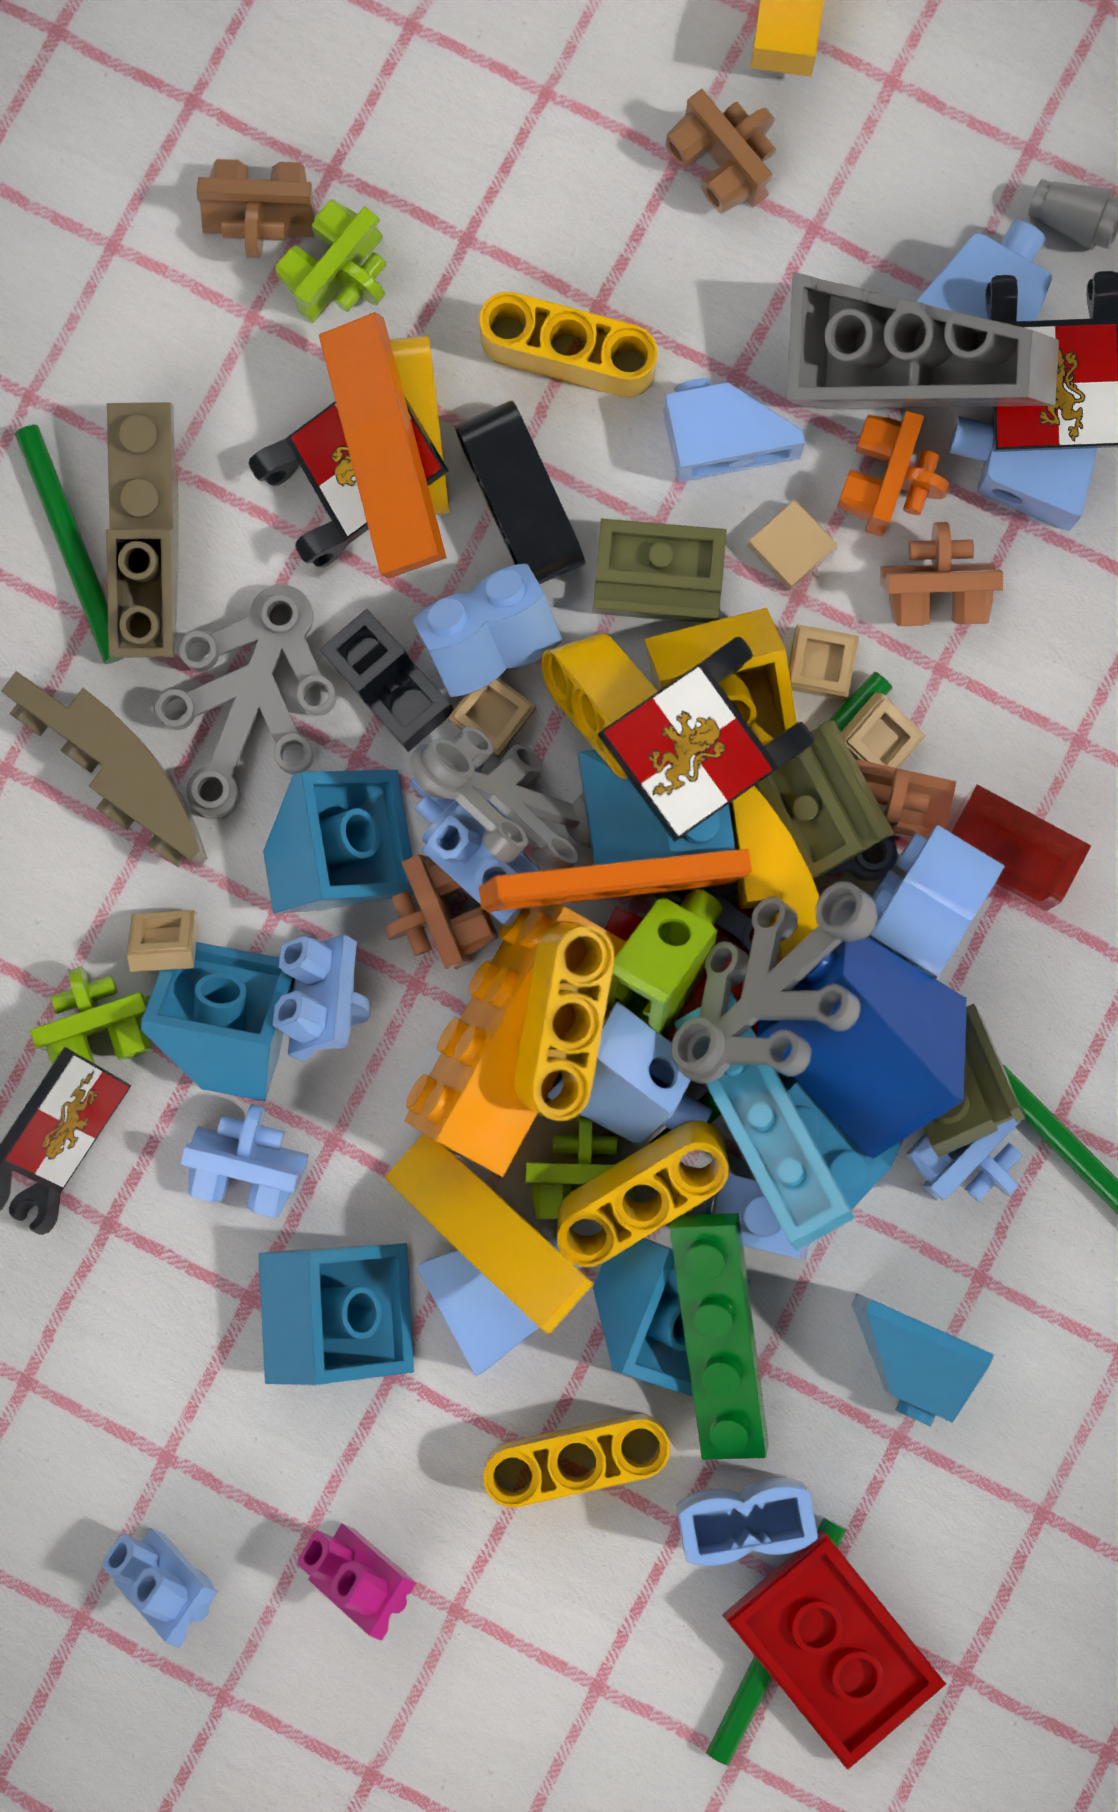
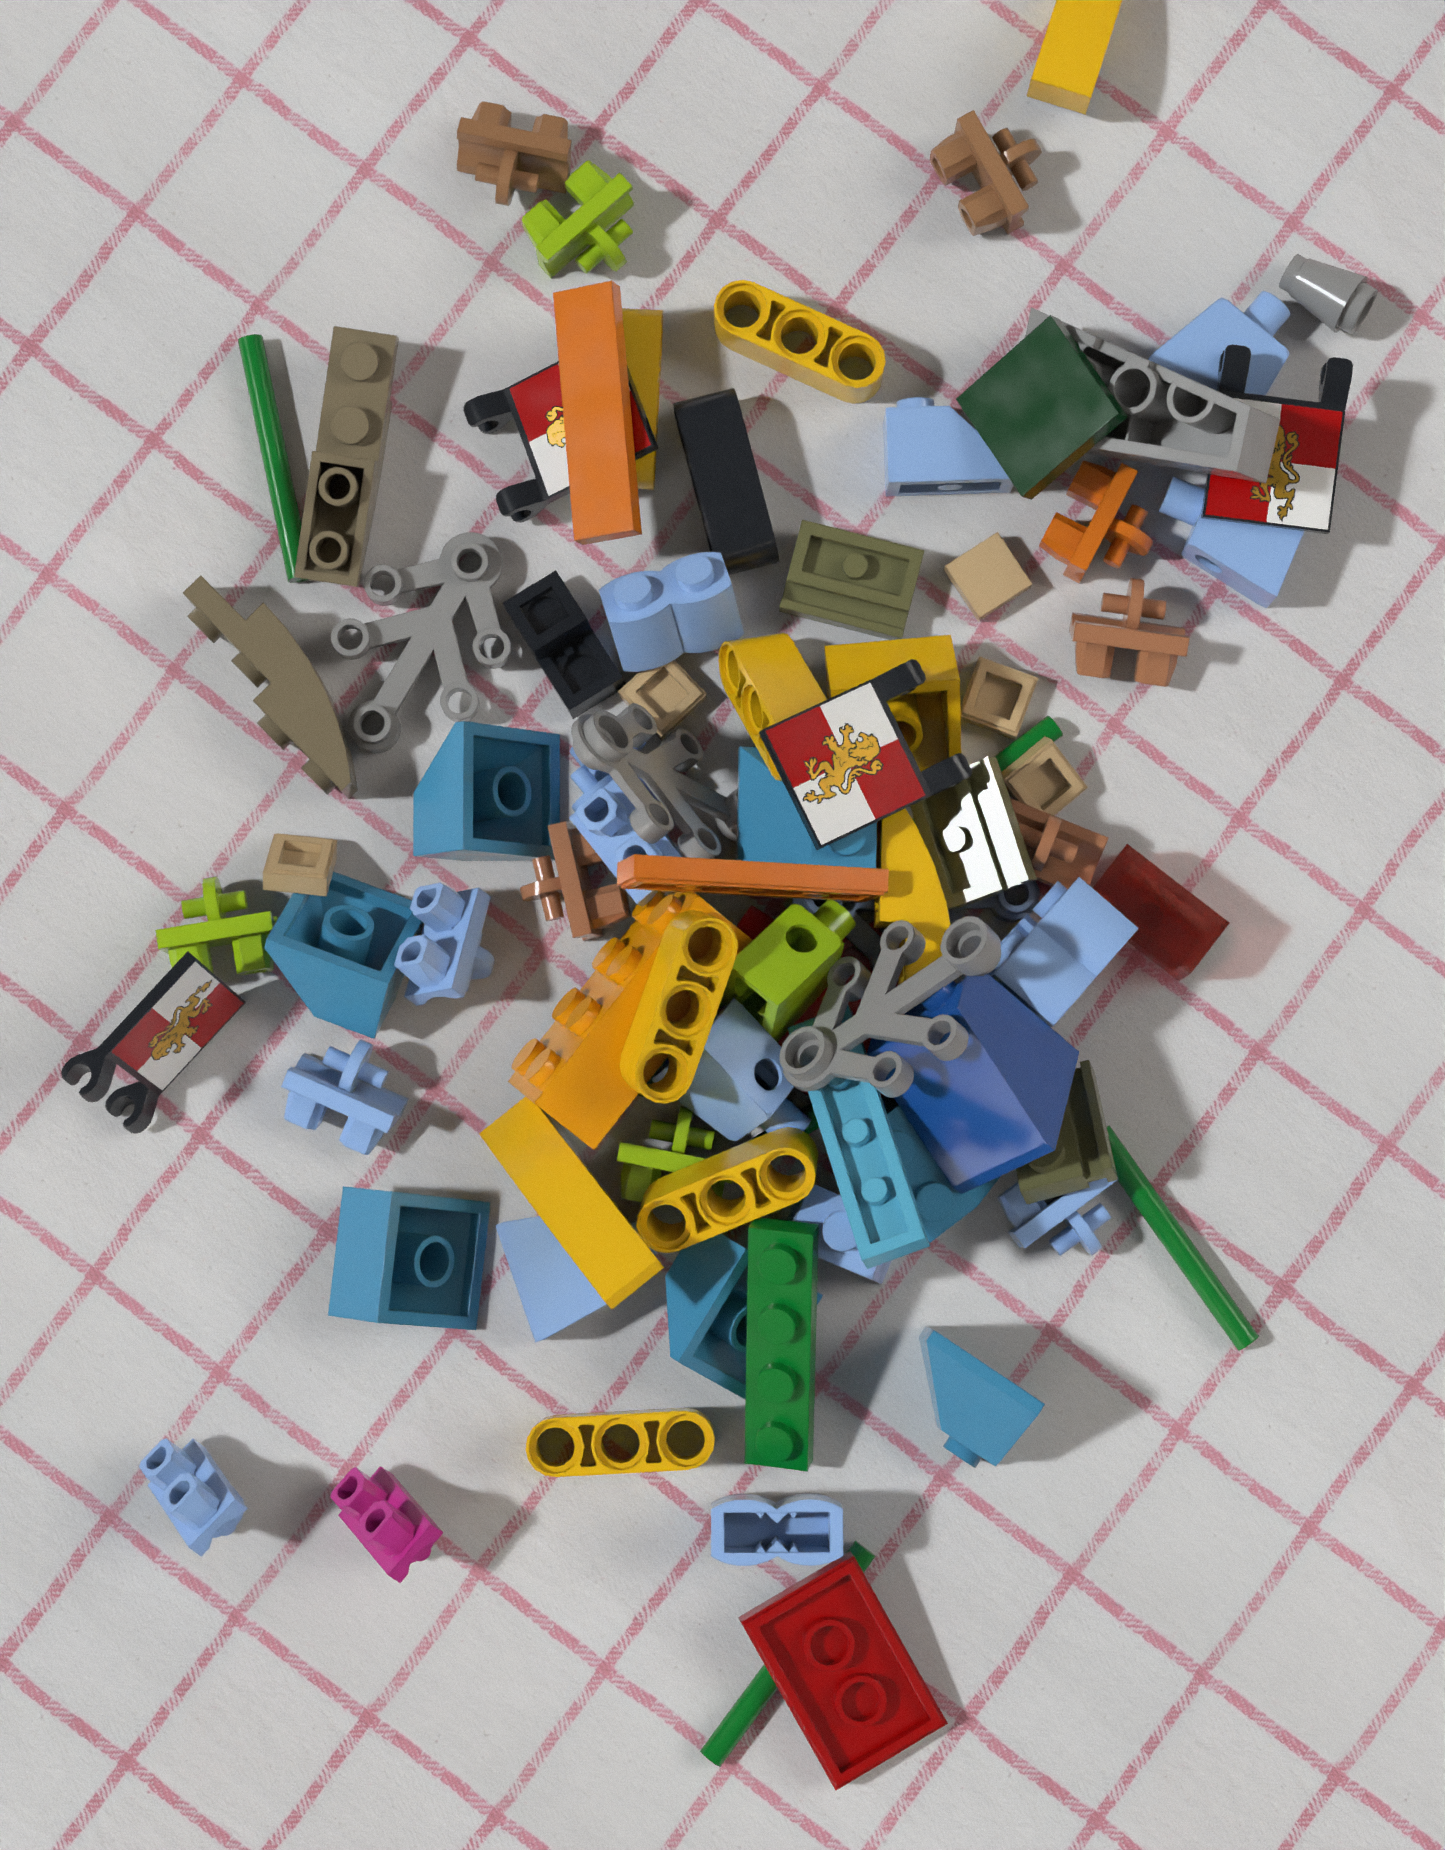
camera: 10 degrees right, 0 degrees up
(820, 368) = (1041, 407): none -> dark green tile

